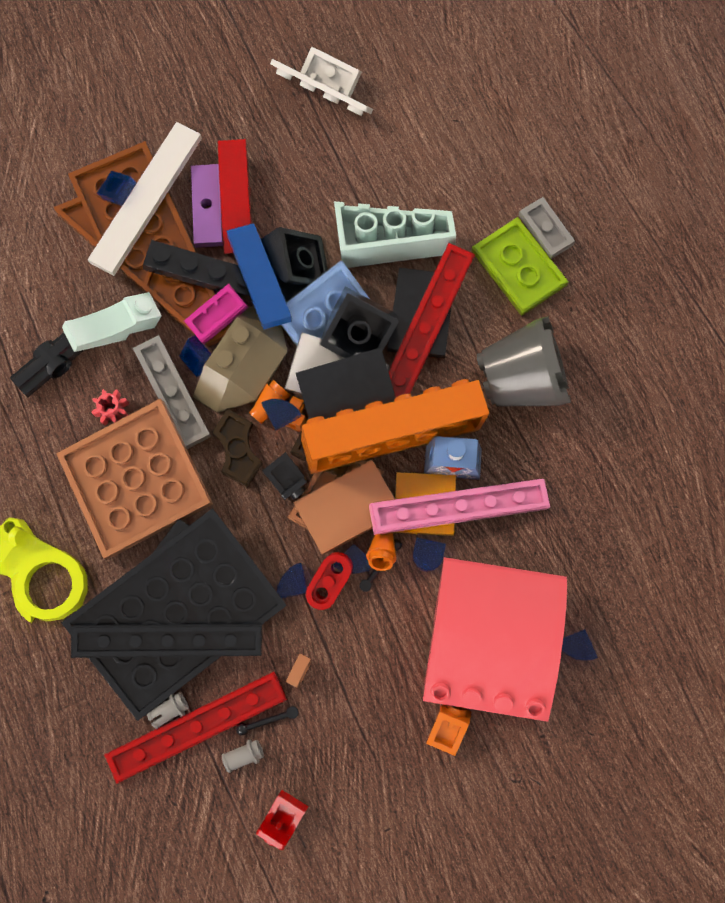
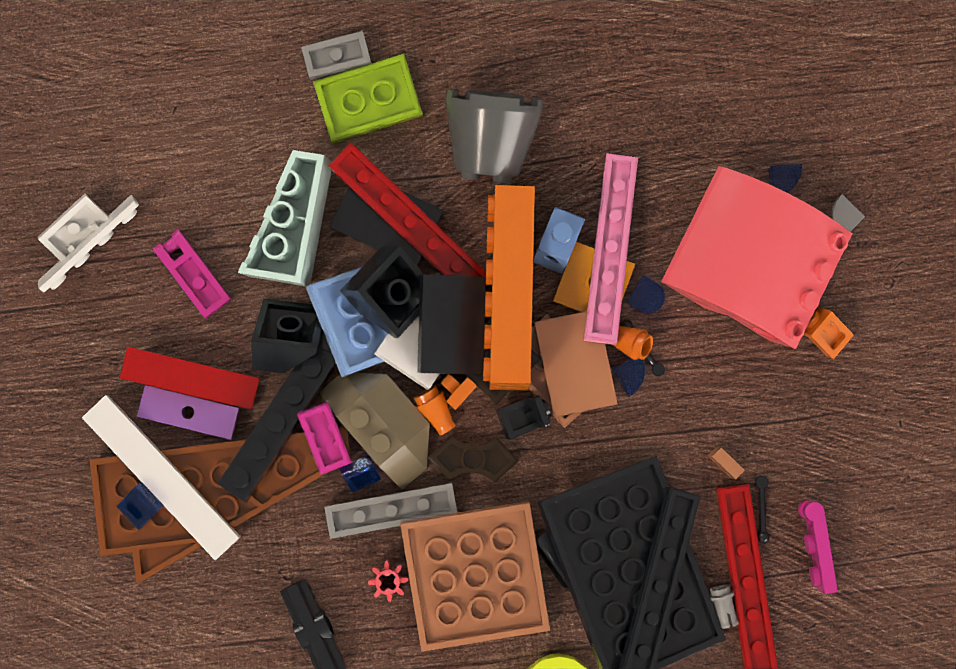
camera: 75 degrees left, 10 degrees up
(112, 323) = (296, 552): light aqua slope -> none
(243, 755) = (790, 543): light grey pin -> none
(248, 780) = (818, 545): none -> dark pink plate
(259, 276) = (298, 379): blue tile -> none
(280, 412) = (457, 401): clear blue tile -> none
(282, 820) = (865, 523): red bracket -> none
(292, 582) = (632, 443): clear blue tile -> none
(322, 173) = (193, 275): none -> dark pink plate
(330, 579) = (644, 403): red plate -> none
(564, 714) = (846, 213): none -> light grey tile

